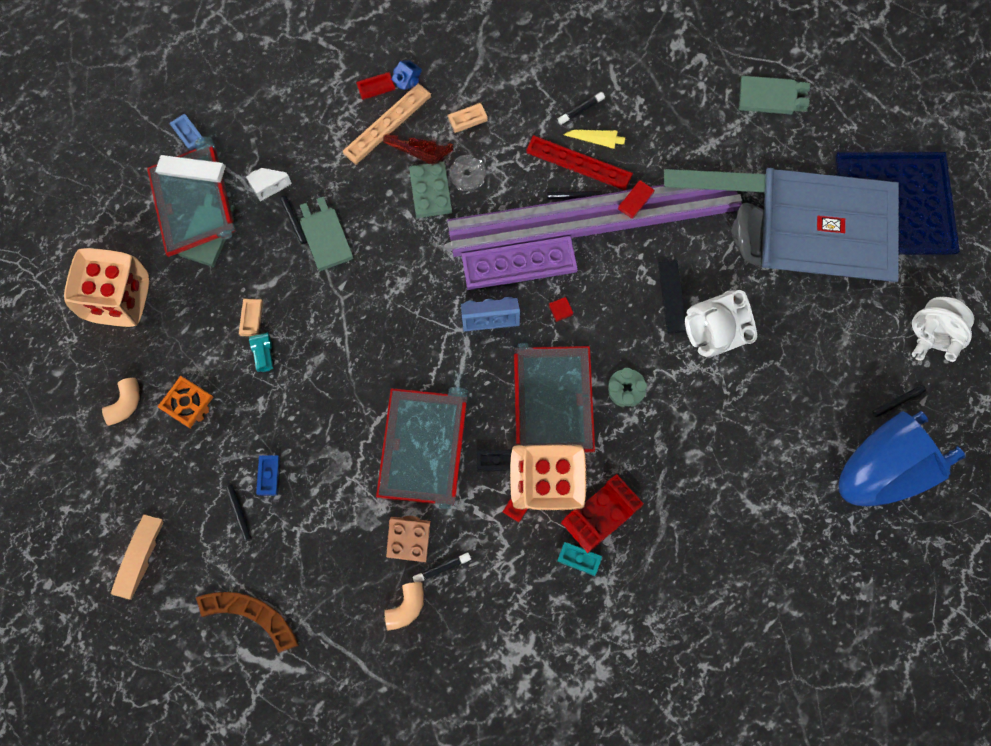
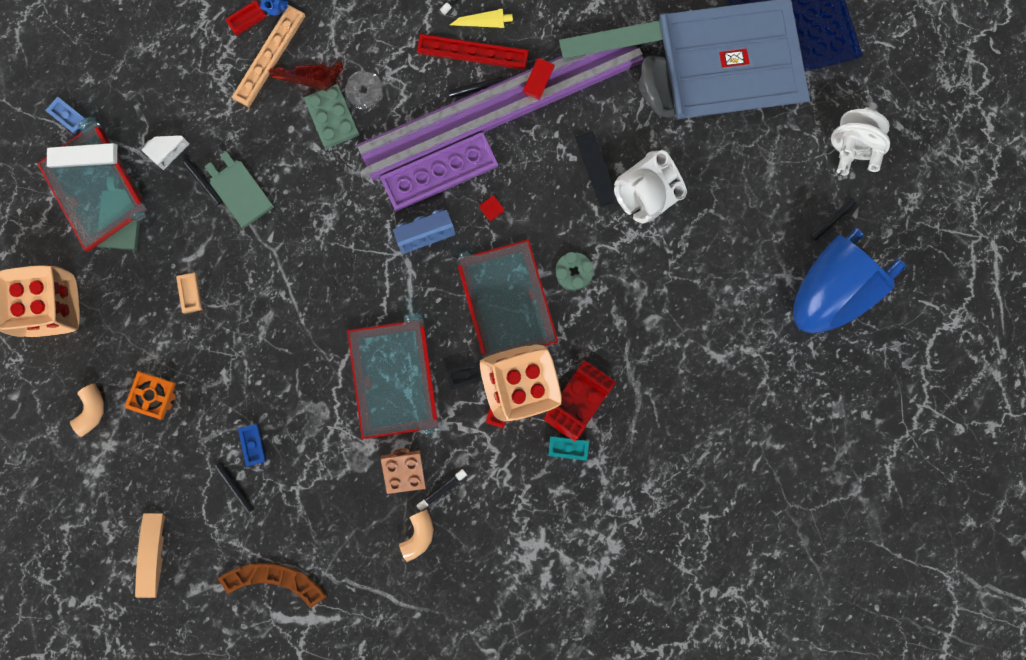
camera: 15 degrees left, 10 degrees up
(261, 346) = (208, 320): teal piece -> none
(467, 117) = (349, 30): light nougat plate -> none

